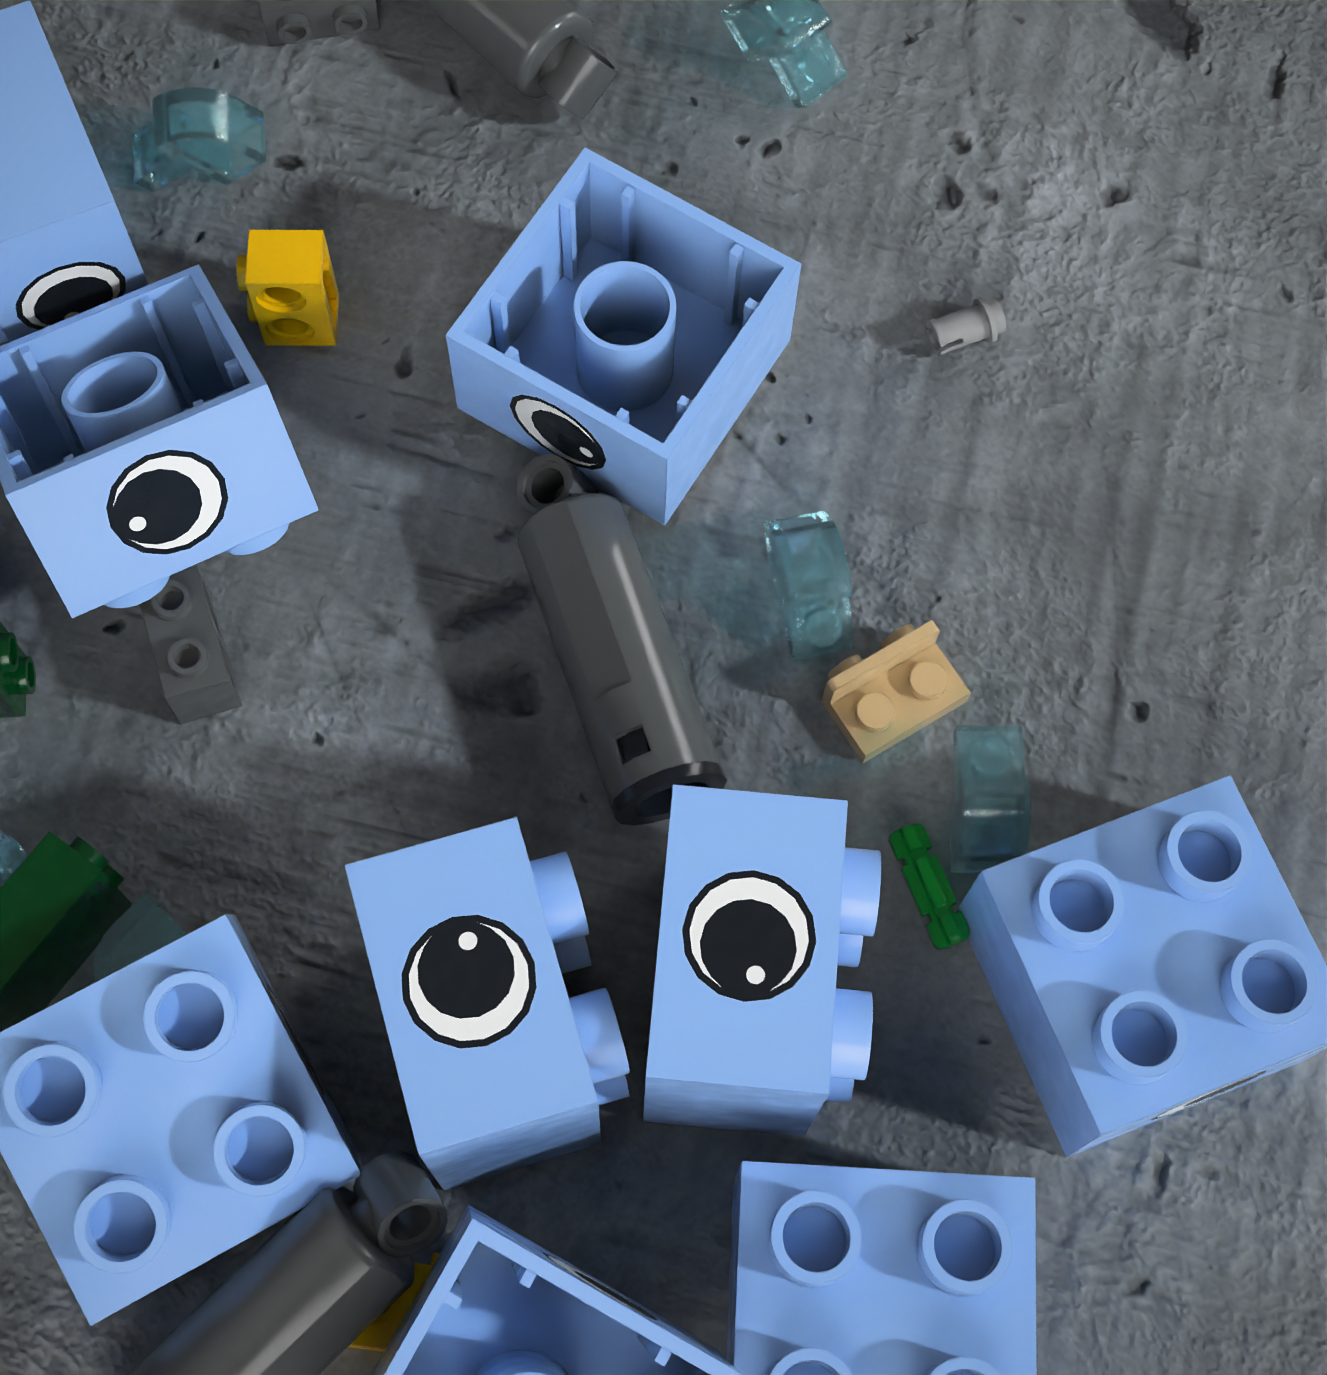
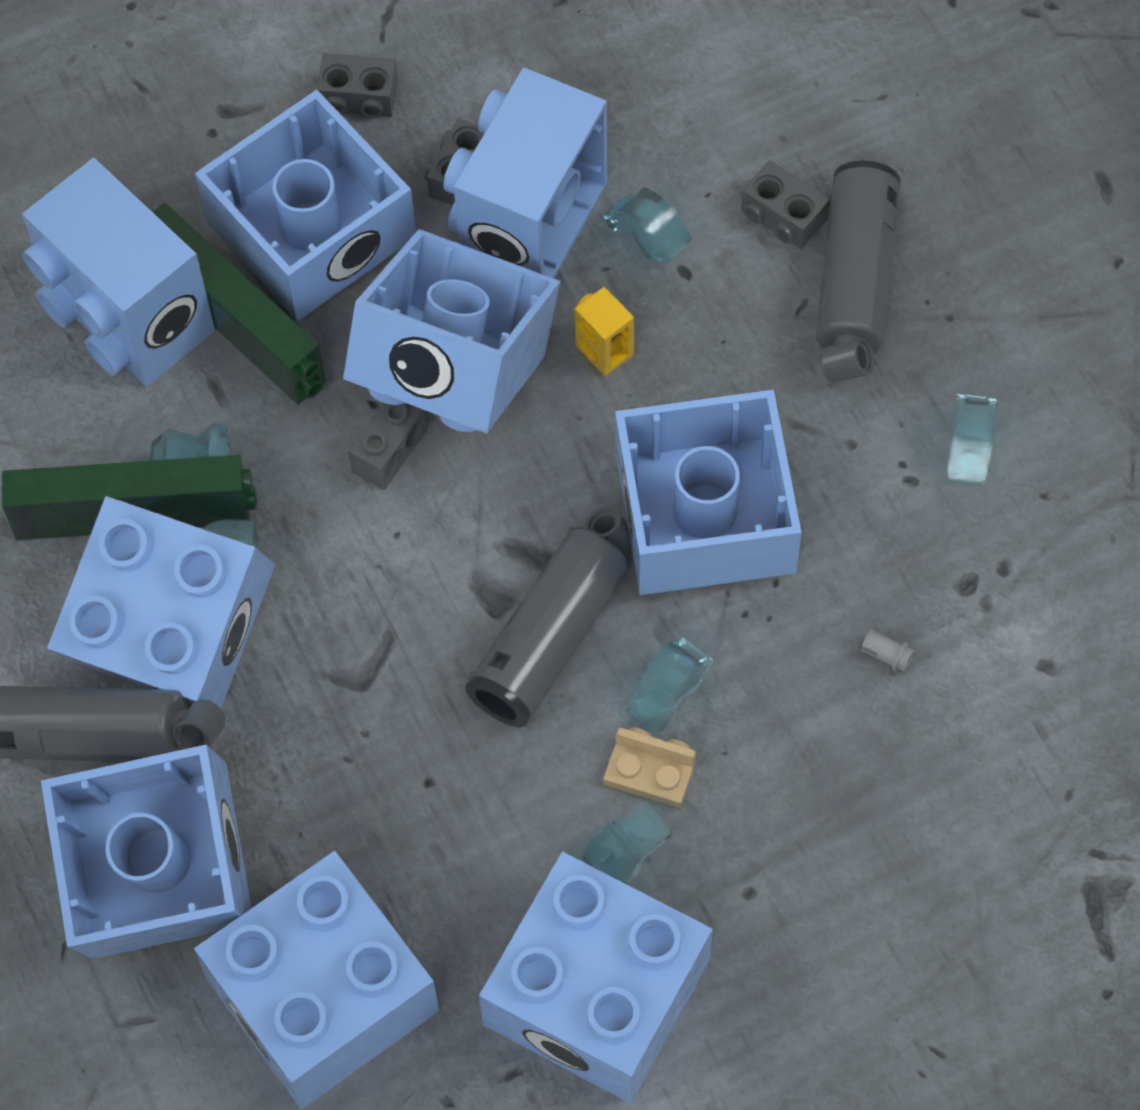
camera: 55 degrees right, 5 degrees down
(476, 1002) = (314, 694): light blue brick -> none
(748, 961) = (430, 788): light blue brick -> none
(929, 886) = (576, 835): green axle -> none

